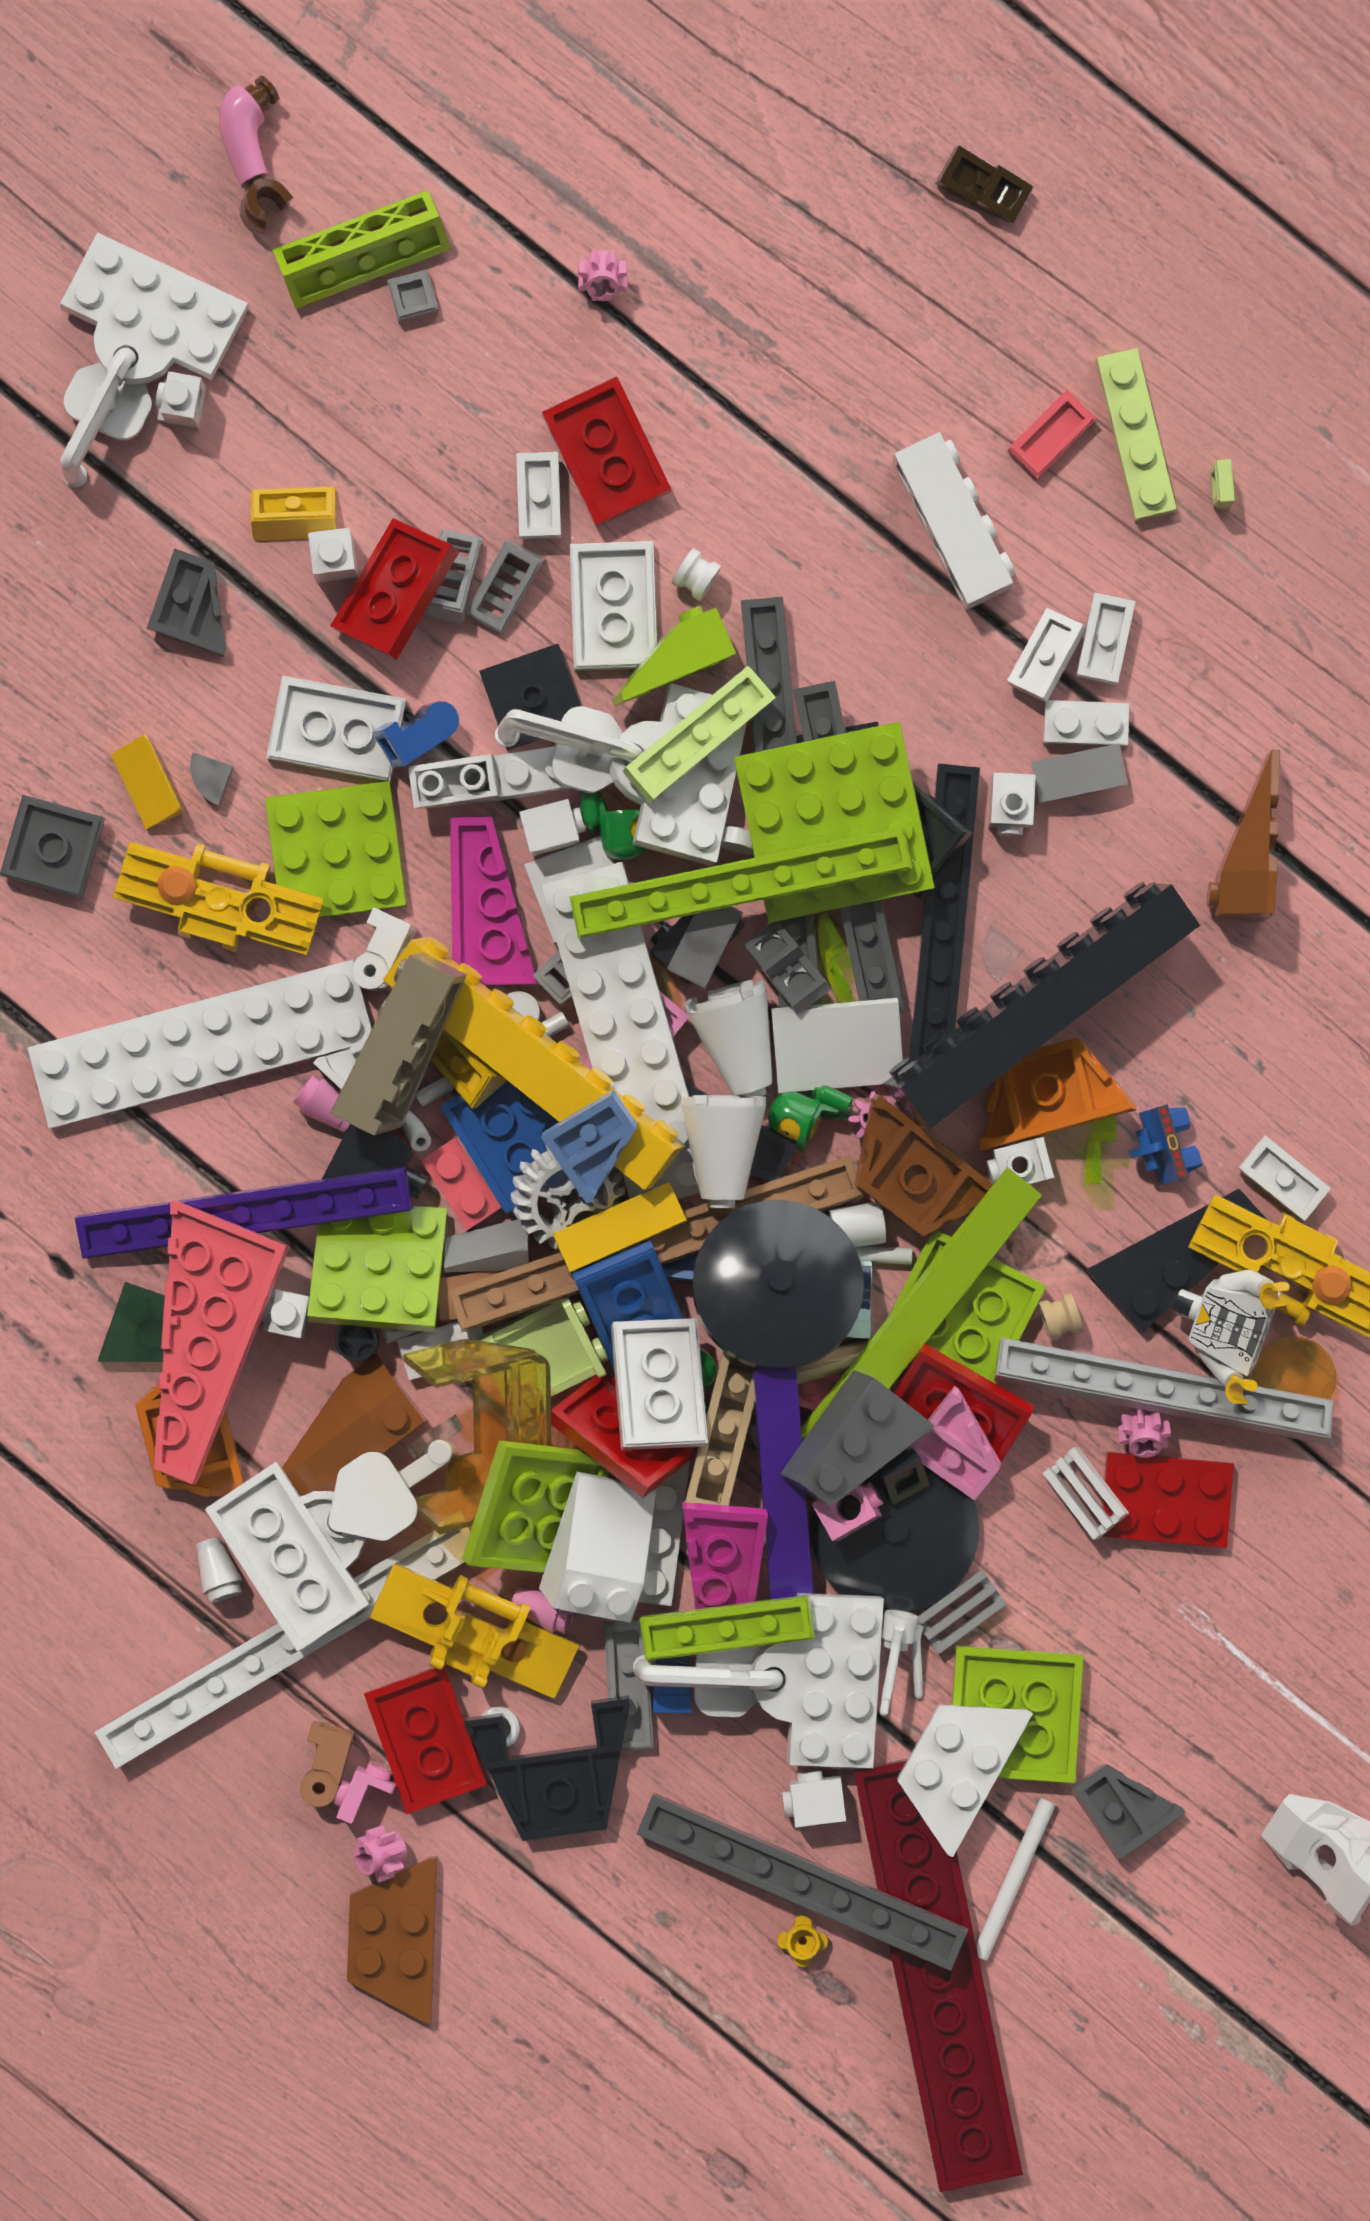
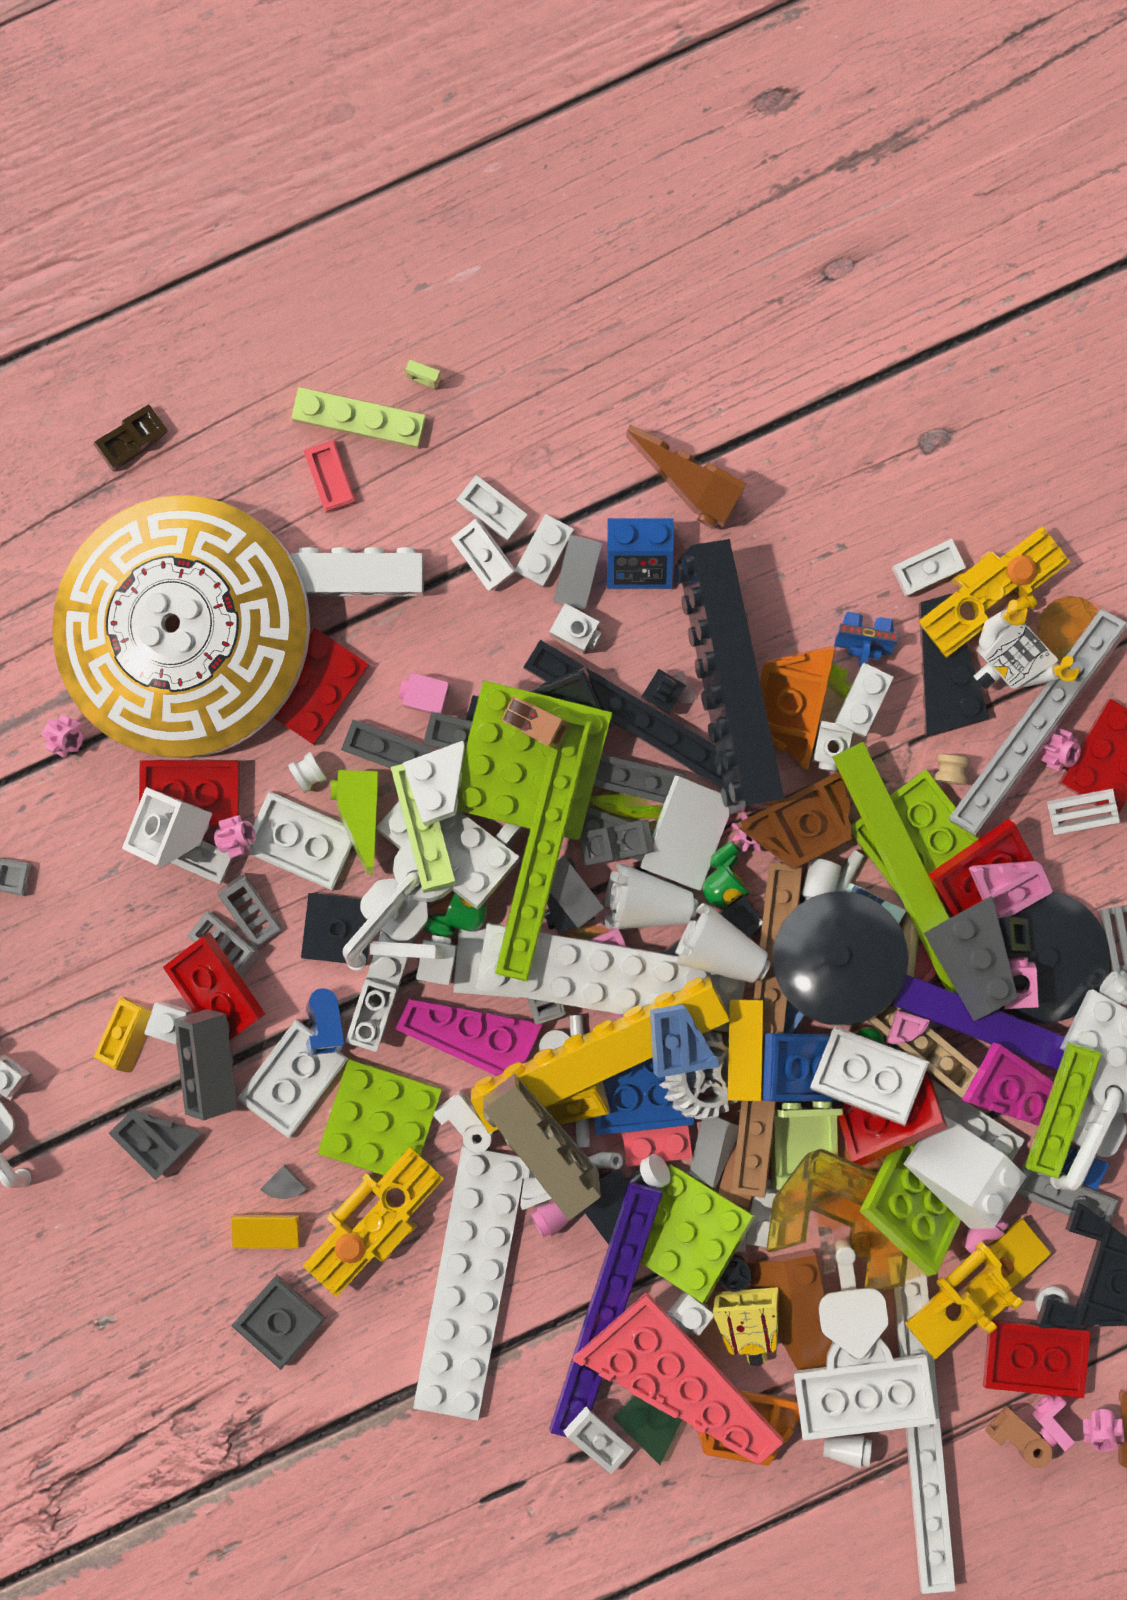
camera: 65 degrees left, 0 degrees up
(92, 1275) = (598, 1440): none -> white plate
(306, 619) = (205, 1064): none -> dark grey brick
(309, 1383) = (748, 1322): none -> light yellow torso
(430, 1193) = (655, 1171): none -> white tile
(547, 783) = (406, 950): none -> white tile
(553, 442) = (165, 828): none -> white slope
(582, 526) = (234, 836): none -> bright pink gear
(734, 1399) = (905, 1028): none -> bright pink tile
(756, 724) = (436, 782): none -> white wing
(799, 535) = (322, 688): none -> red plate
(809, 417) = (236, 638): none -> dish
(852, 665) = (424, 693): none -> bright pink brick
(879, 803) = (535, 722): none -> nougat leg
(988, 938) = (663, 691): none -> black tile
(1090, 1172) = (863, 700): none -> white plate
(1135, 834) = (640, 553): none -> blue slope

